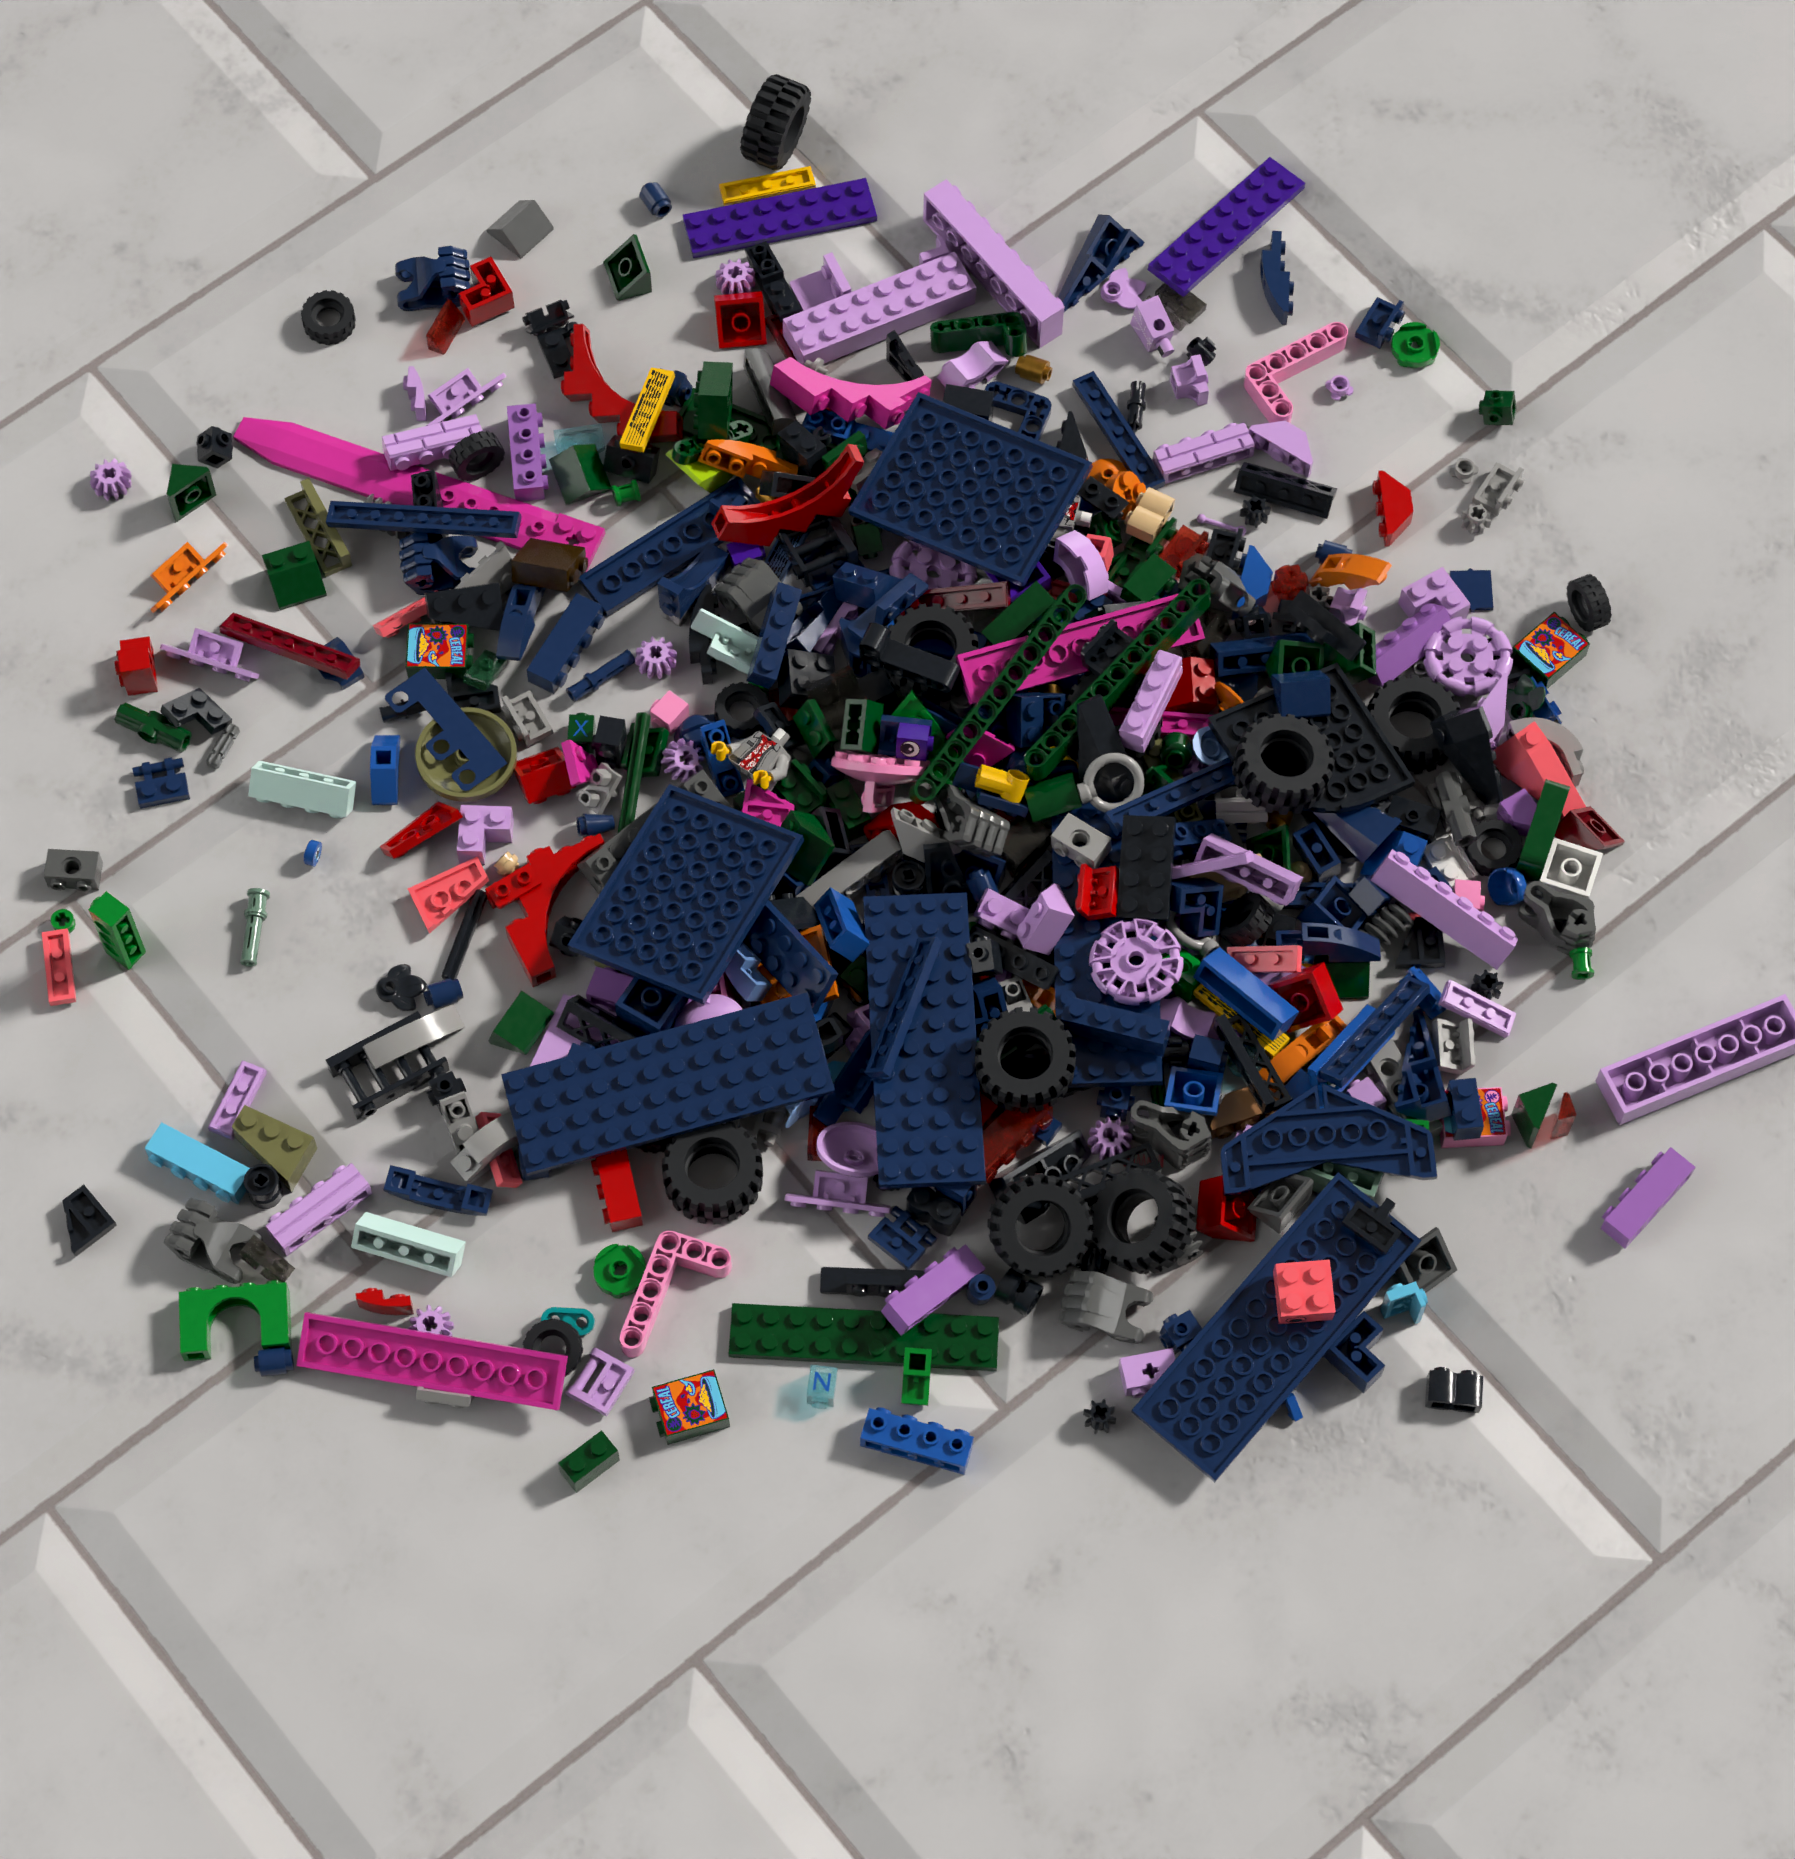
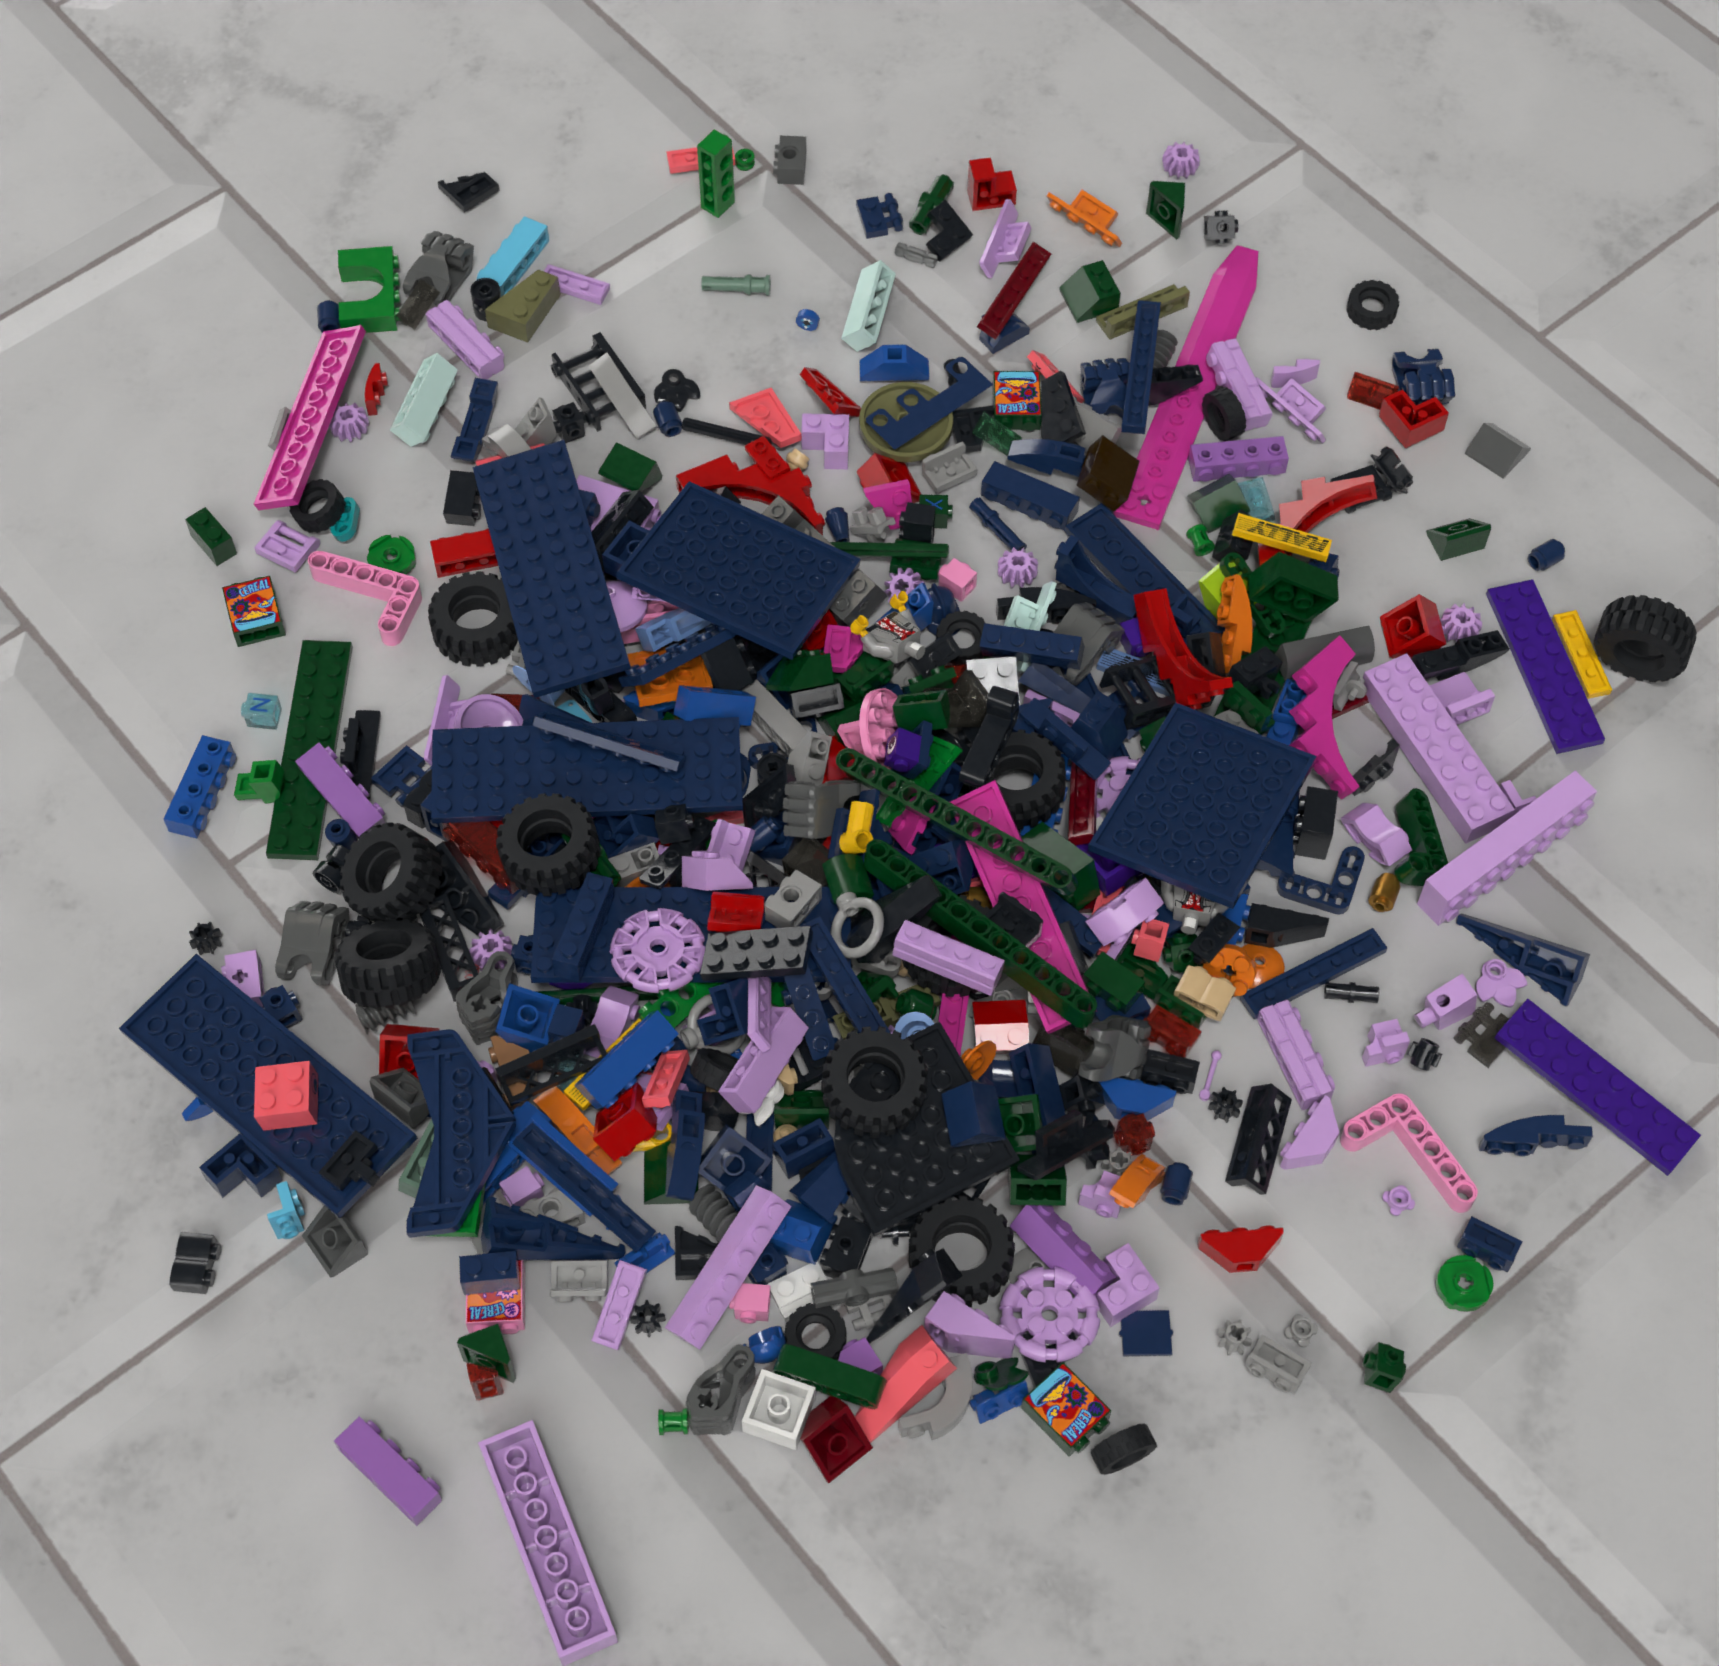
camera: 90 degrees right, 5 degrees down
(548, 1196) = (462, 499): none -> black brick

